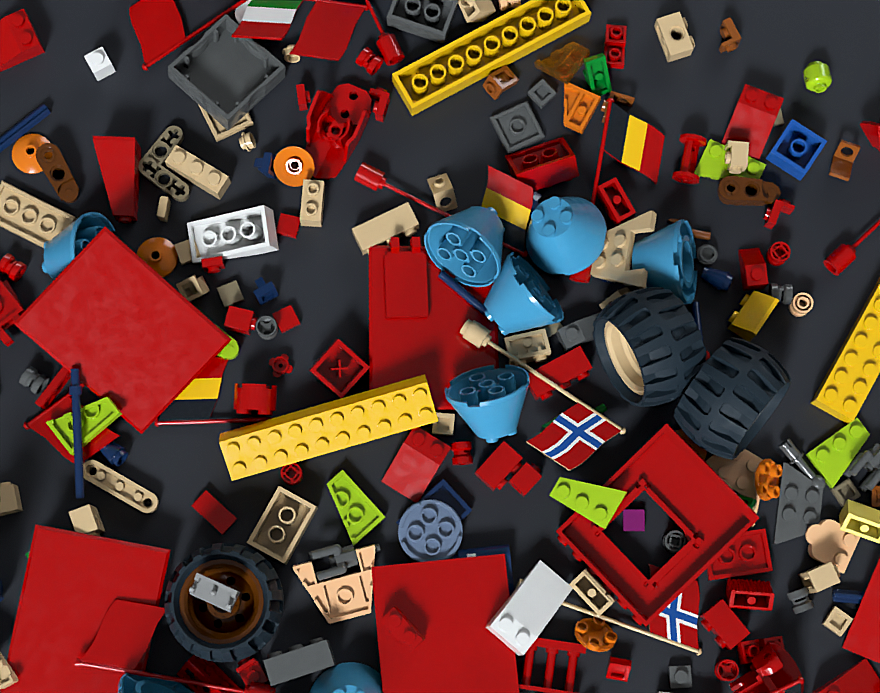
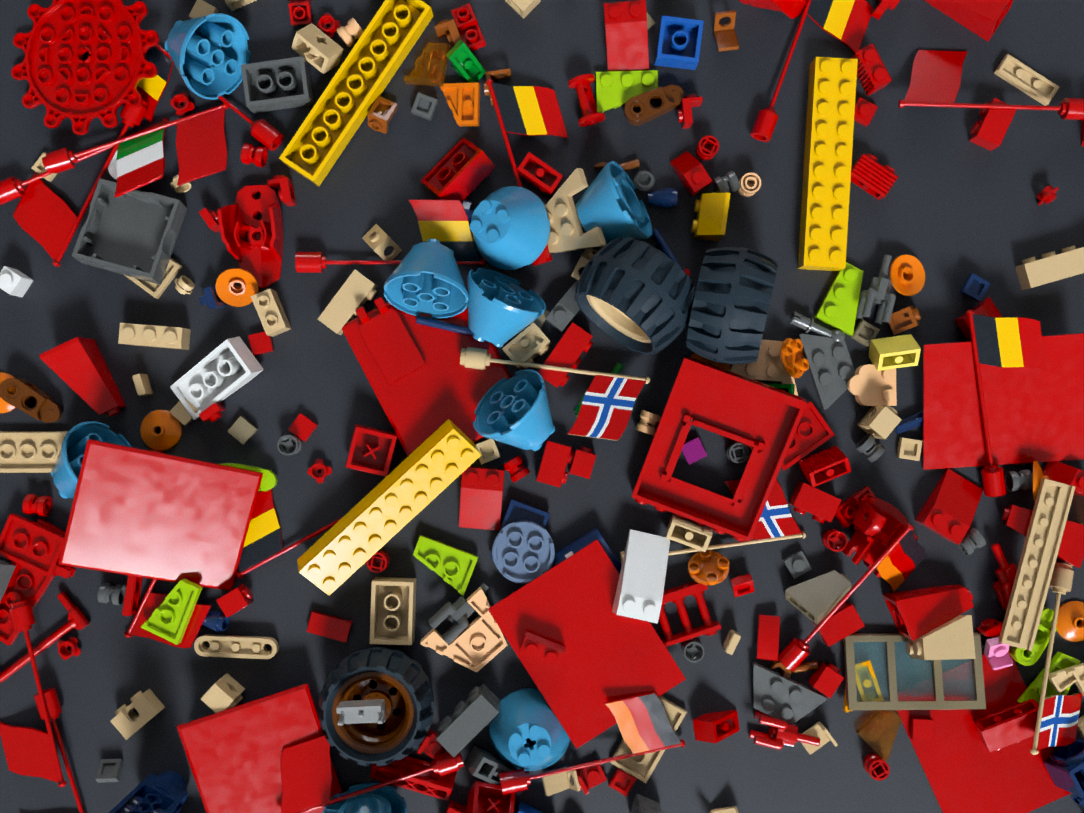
camera: 20 degrees left, 10 degrees up
(76, 390) = (149, 591): dark blue bar -> none
(142, 443) = (235, 600): none -> red brick
(158, 163) = (112, 344): dark tan beam -> none
(193, 287) = (205, 444): tan brick -> none
(240, 320) = (262, 450): red brick -> none
(255, 397) = (312, 513): red brick -> none
(265, 291) = (271, 413): dark blue tile -> none
(517, 127) = (418, 149): dark grey tile -> none
(588, 499) = (650, 457): lime wing -> none
(597, 39) = (449, 29): none -> dark orange bracket
(603, 472) = (650, 419): none -> light nougat wheel
(736, 156) = (628, 76): tan brick -> none

